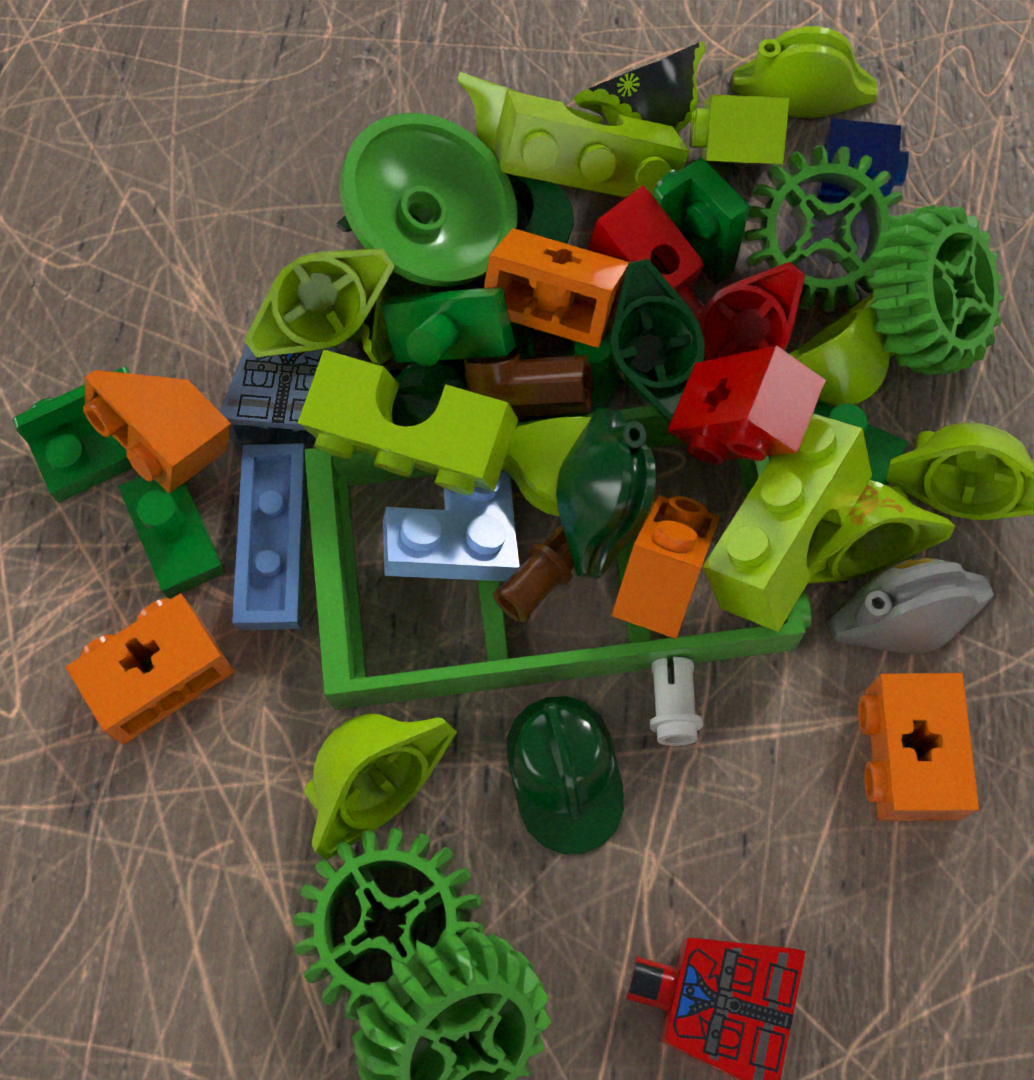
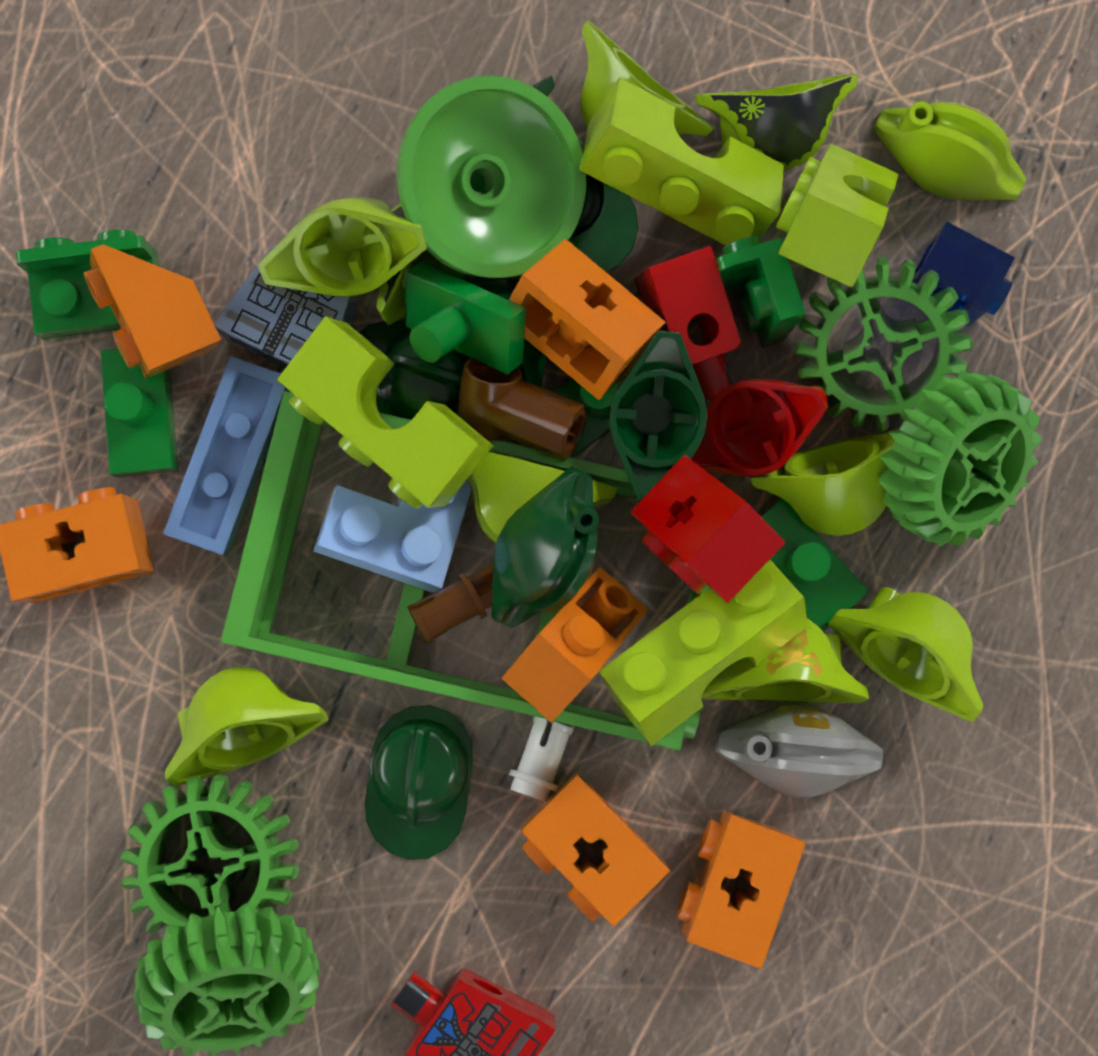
camera: 15 degrees right, 15 degrees up
(798, 766) = (628, 865): none -> orange brick

